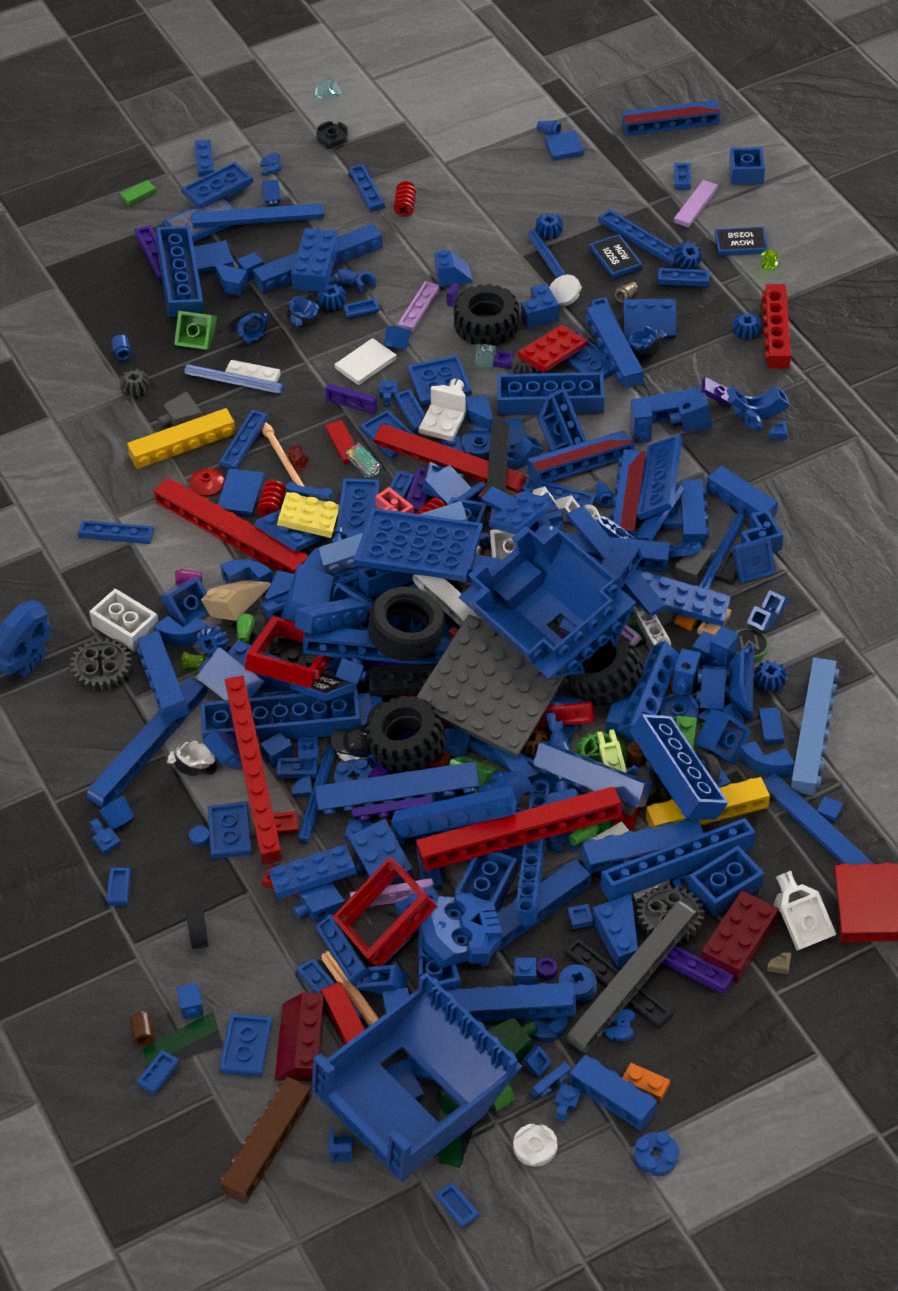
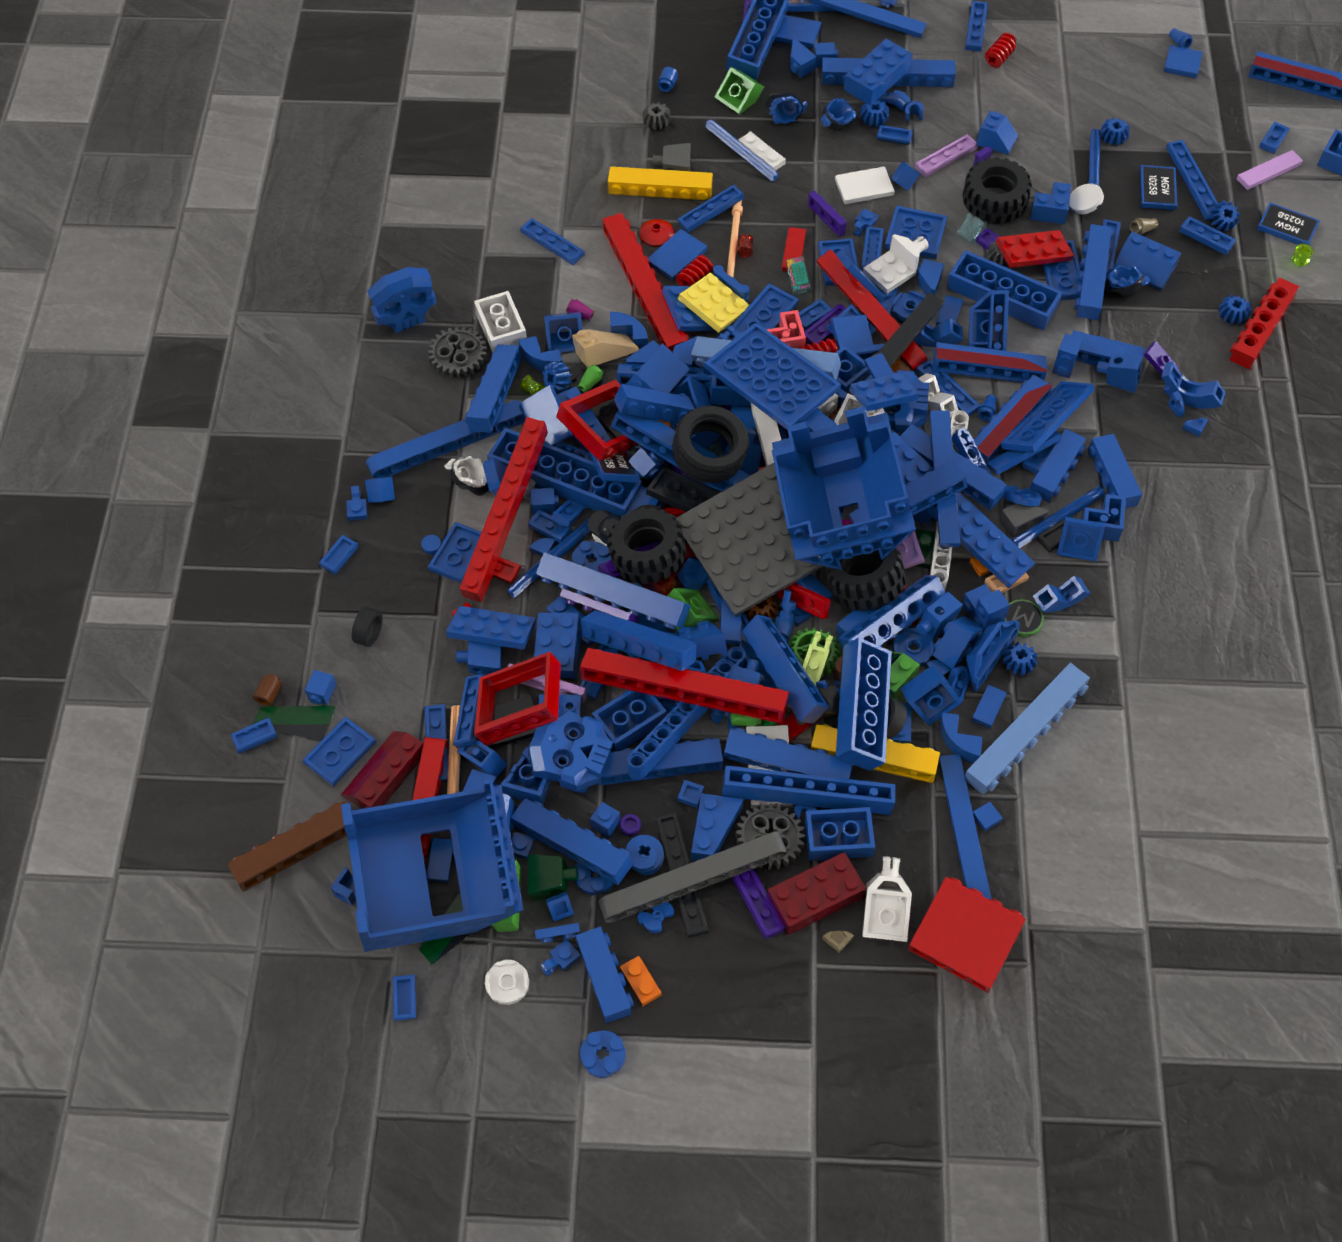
camera: 30 degrees right, 10 degrees up
(420, 431) = (860, 275): none -> blue tile

